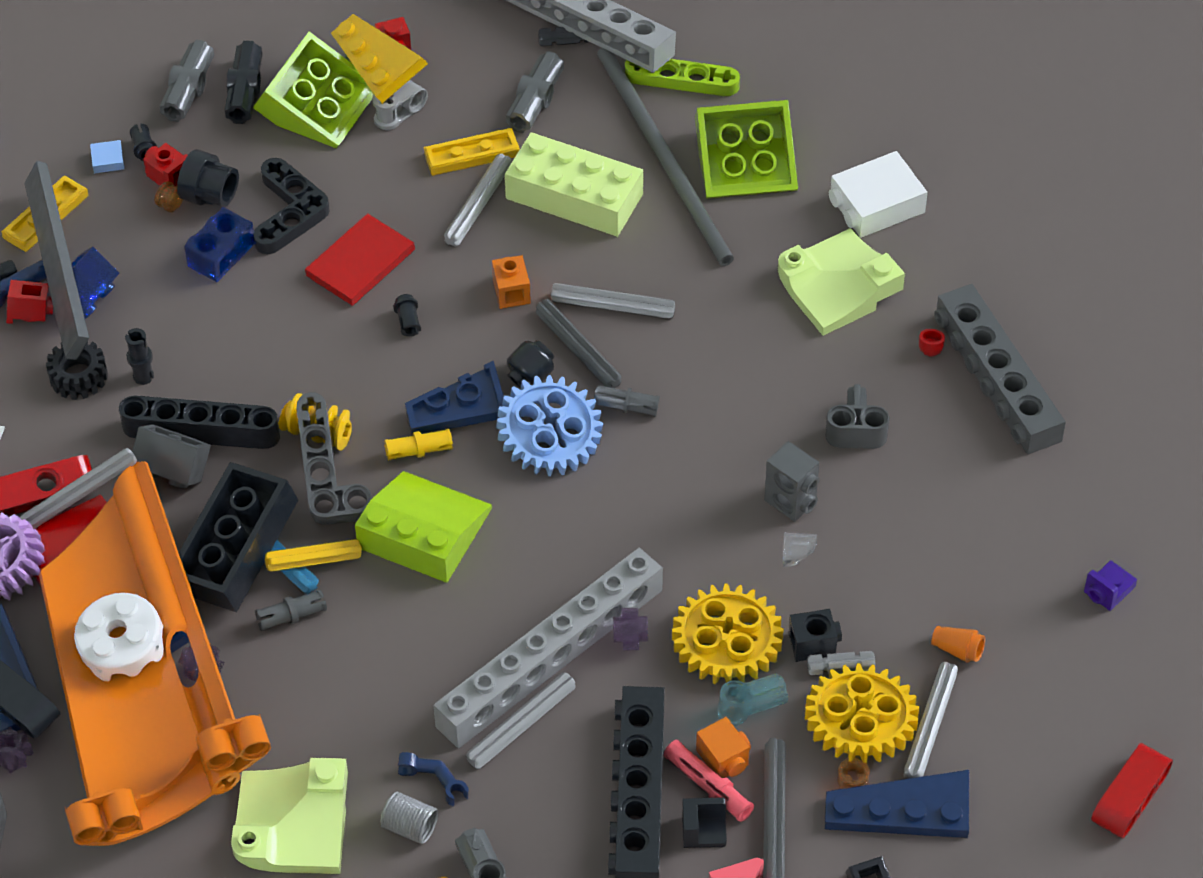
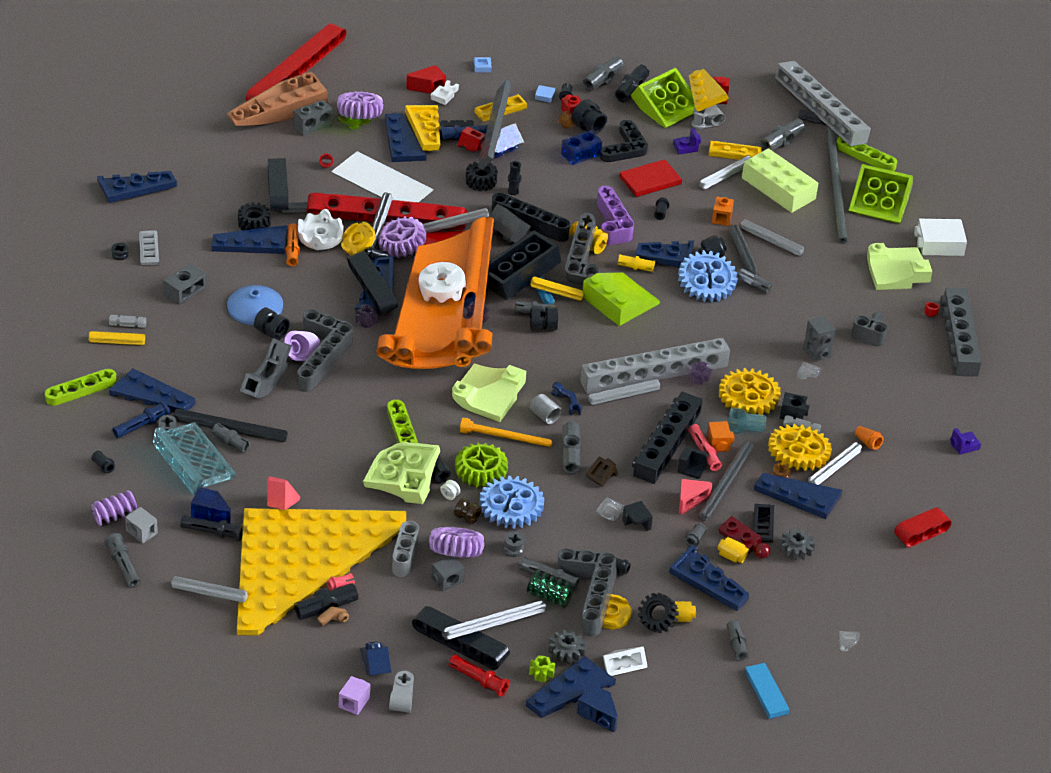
camera: 20 degrees right, 10 degrees down
(330, 621) = (550, 318): none -> black wheel
(358, 378) = (619, 223): none -> medium lavender beam
(389, 166) = (687, 144): none -> dark purple bracket

